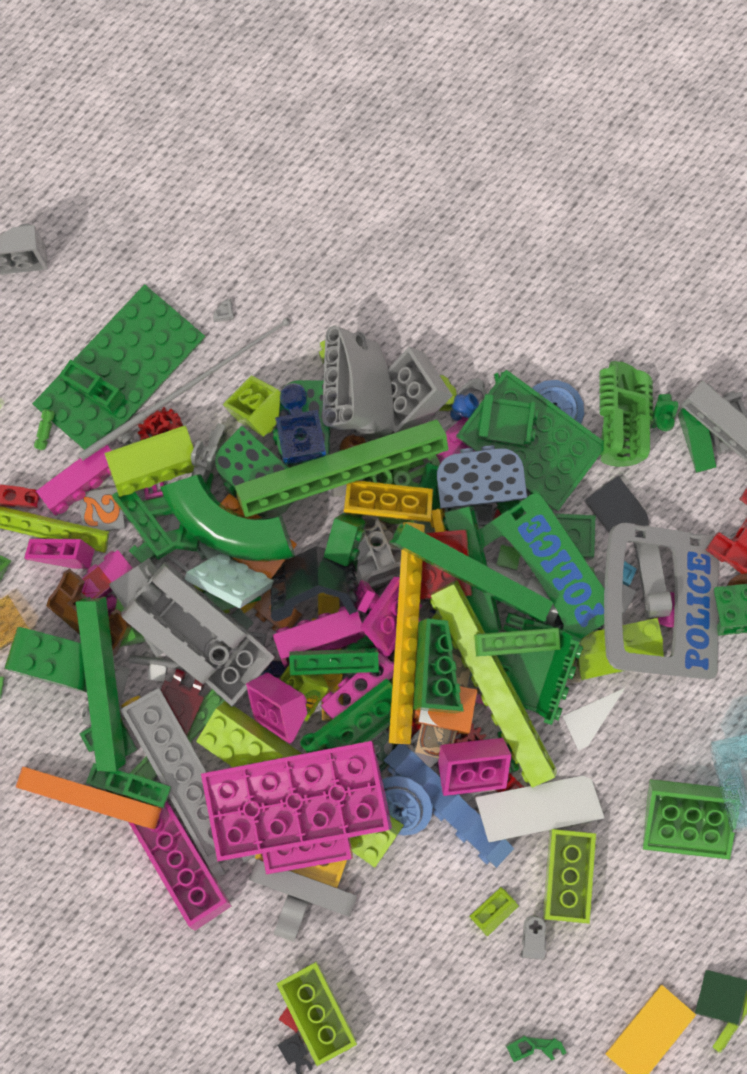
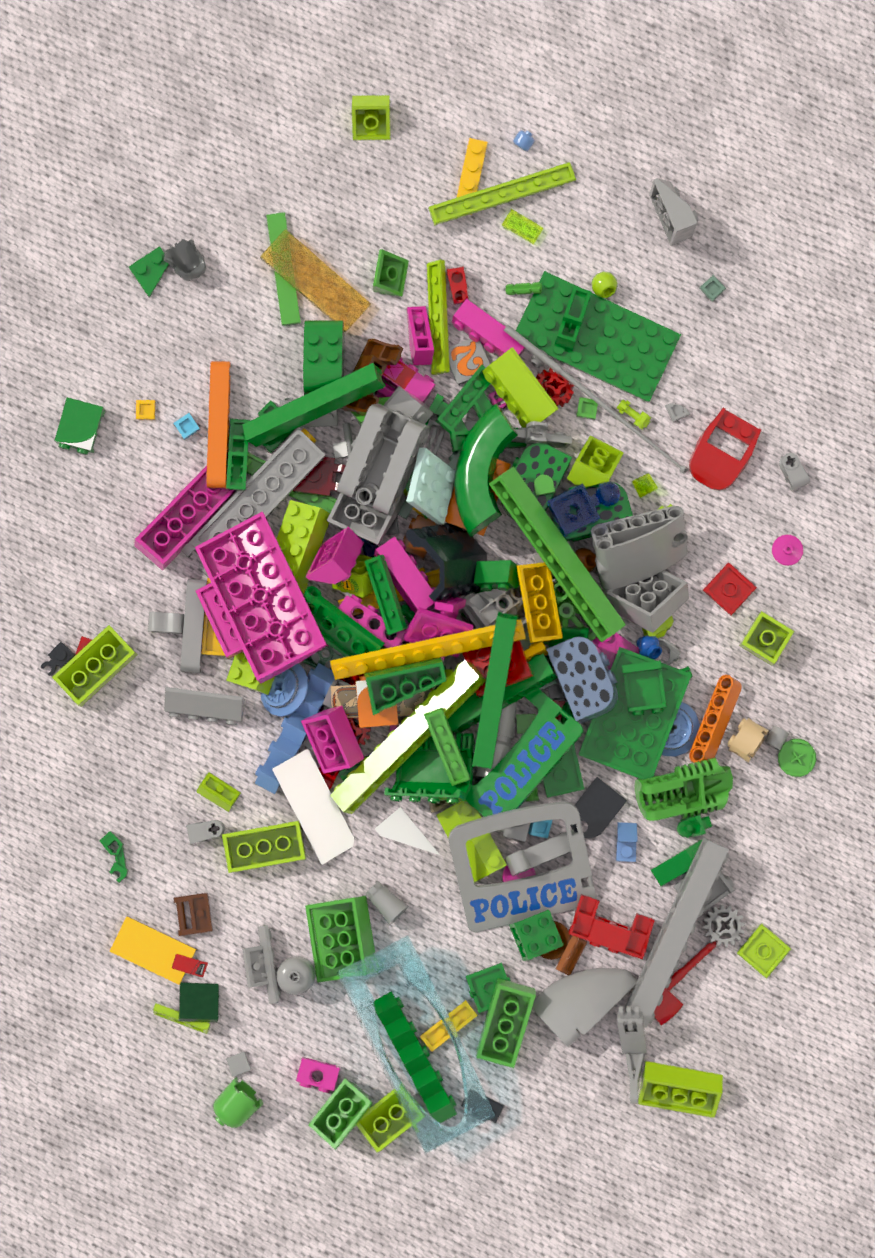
camera: 75 degrees right, 5 degrees up
(40, 956) = (79, 425): none -> green panel
(46, 876) = (145, 409): none -> yellow tile
(65, 345) = (604, 284): none -> lime piece
(78, 834) = (186, 426): none -> medium azure plate
(106, 240) = (712, 288): none -> sand green tile
(192, 401) = (587, 408): none -> bright green tile
(221, 349) = (641, 420): none -> lime bar
(263, 462) = (543, 485): none -> bright green tile
(291, 365) = (644, 485): none -> clear neon green slope
(292, 289) = (715, 467): none -> red slope
(323, 212) = (794, 473): none -> light grey piece
(394, 900) = (204, 704): none -> light grey slope
(400, 243) = (787, 550): none -> dark pink piece
(424, 311) = (729, 589): none -> red tile
(488, 286) = (766, 638): none -> lime brick
(549, 361) = (713, 712): none -> orange beam
(588, 333) = (747, 740): none -> tan brick
(592, 306) = (777, 737): none -> light grey beam
(618, 293) = (797, 758): none -> bright green tile
(622, 969) = (199, 912): none -> reddish brown plate
(660, 488) = (626, 842): none -> medium blue slope
(663, 759) = (386, 902): none -> light grey plant
(677, 997) = (189, 965): none -> red sticker
(697, 916) = (260, 965): none -> light grey bracket
(709, 880) = (304, 970): none -> light grey cylinder

